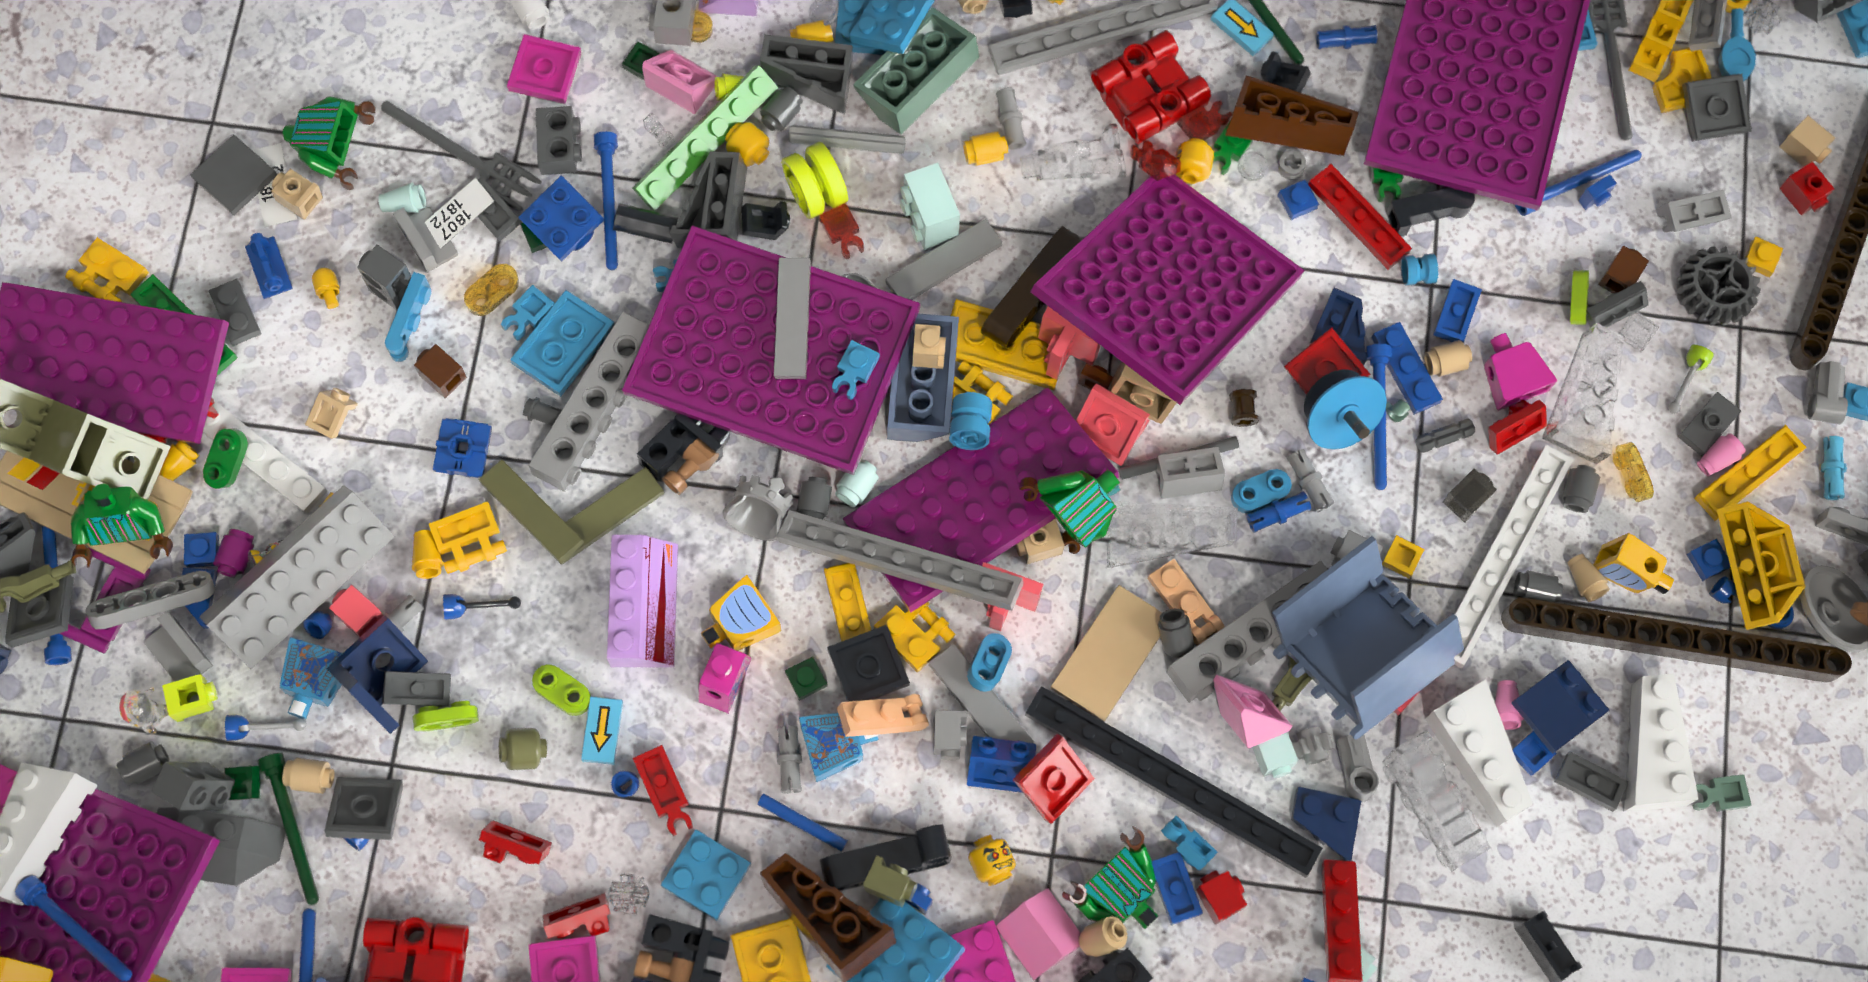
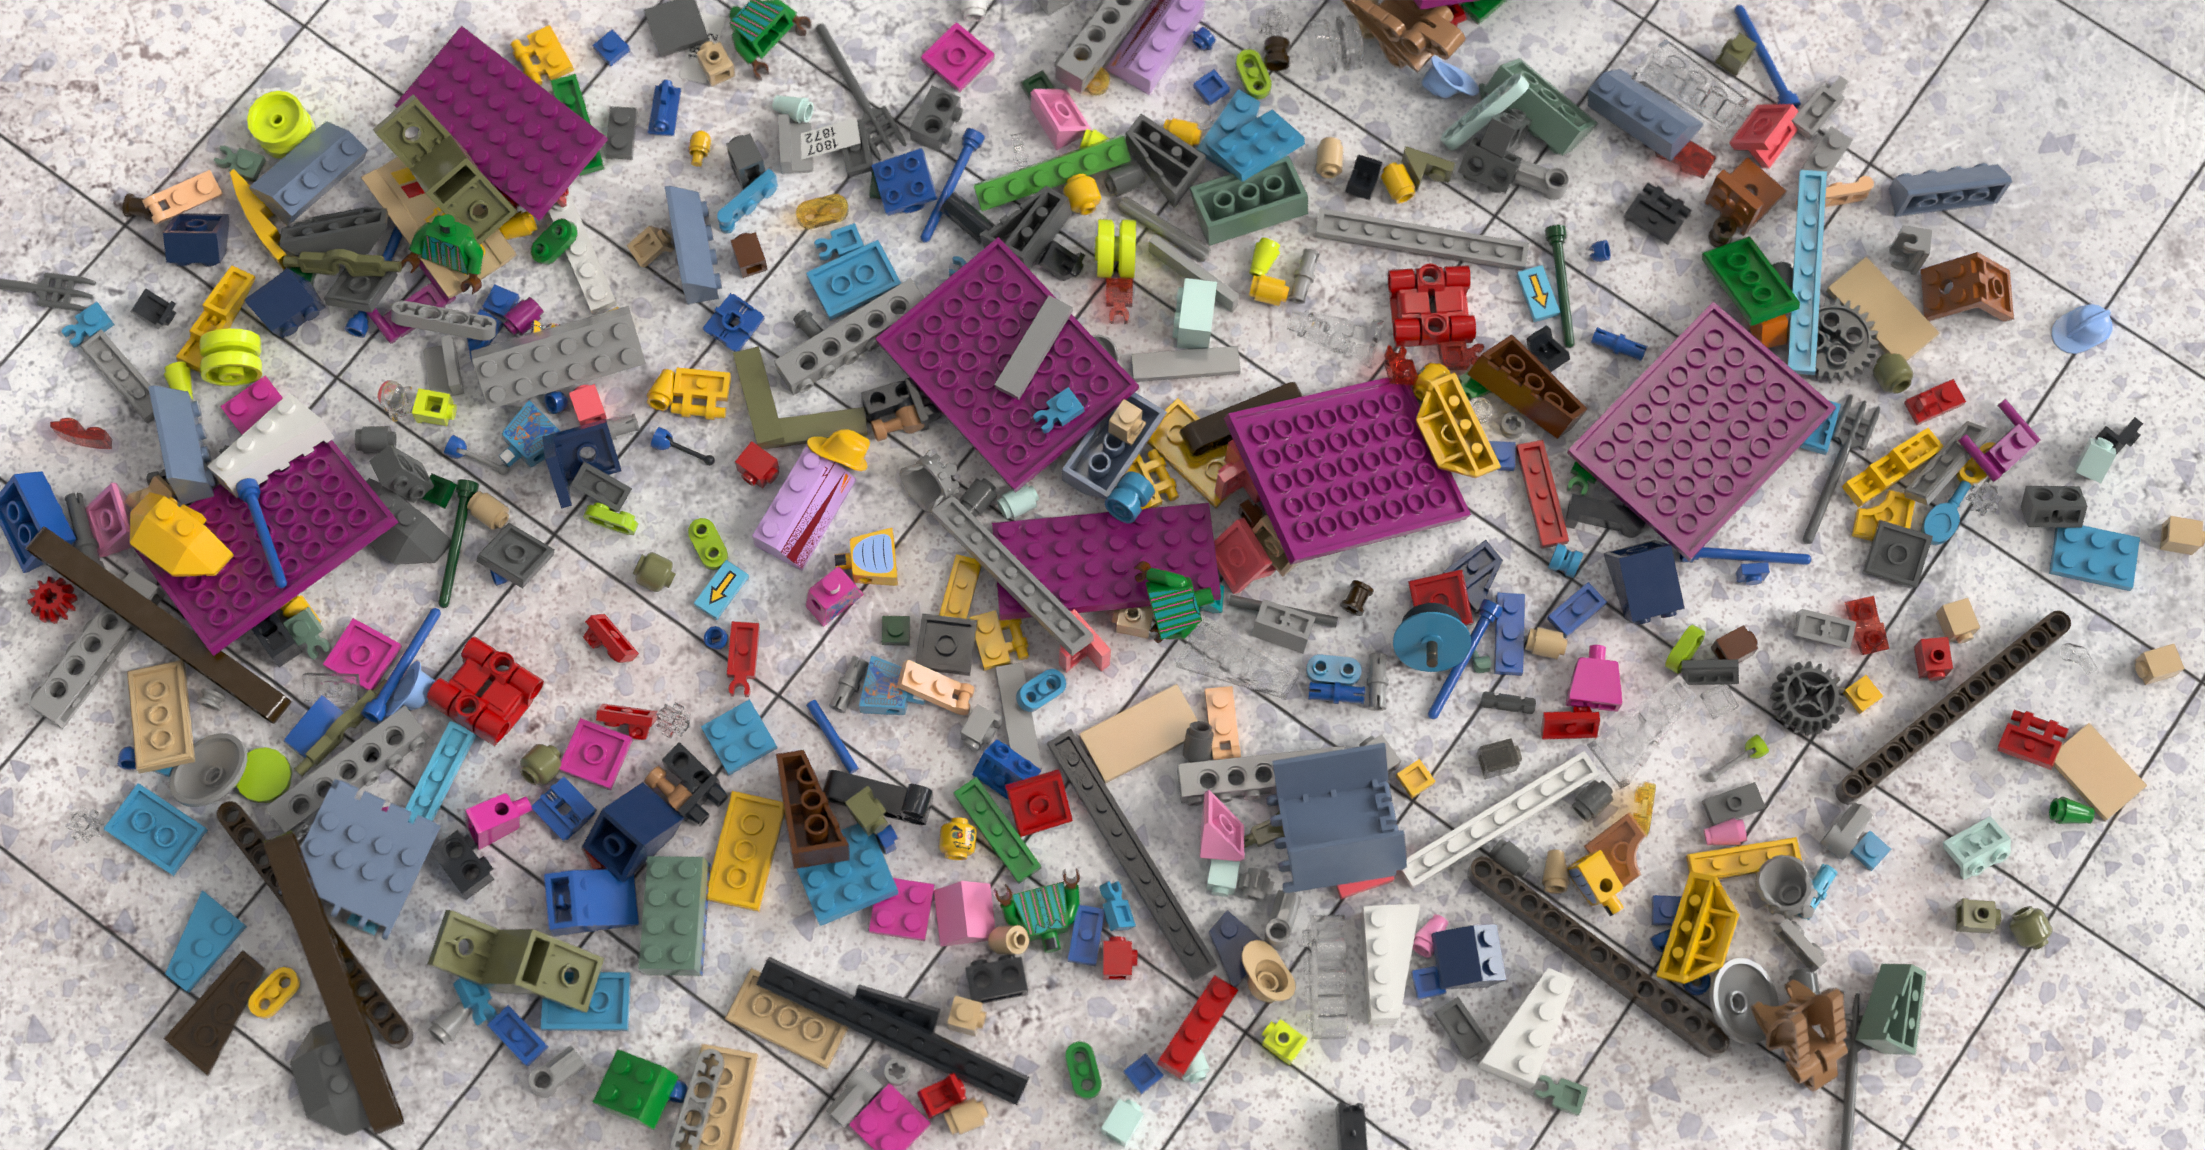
camera: 30 degrees right, 0 degrees up
(176, 230) = (611, 47): none -> blue plate
(375, 389) = (692, 245): none -> sand blue slope
(569, 583) = (757, 466): none -> red brick
(648, 519) = (842, 447): none -> yellow piece
(894, 166) = (1191, 270): none -> light grey tile
(961, 118) = (1264, 256): none -> neon yellow cone
(1025, 829) = (997, 830): none -> green plate
(1246, 196) = (1454, 430): none -> yellow wedge
(1377, 831) = (1267, 973): none -> tan piece
(1419, 896) = (1285, 1051): none -> neon yellow brick
(1505, 249) = (1645, 581): none -> dark blue slope
(1633, 515) = (1620, 847): none -> nougat tile
(1739, 194) = (1869, 631): none -> clear red slope
(1811, 477) = (1786, 887): none -> light grey hair

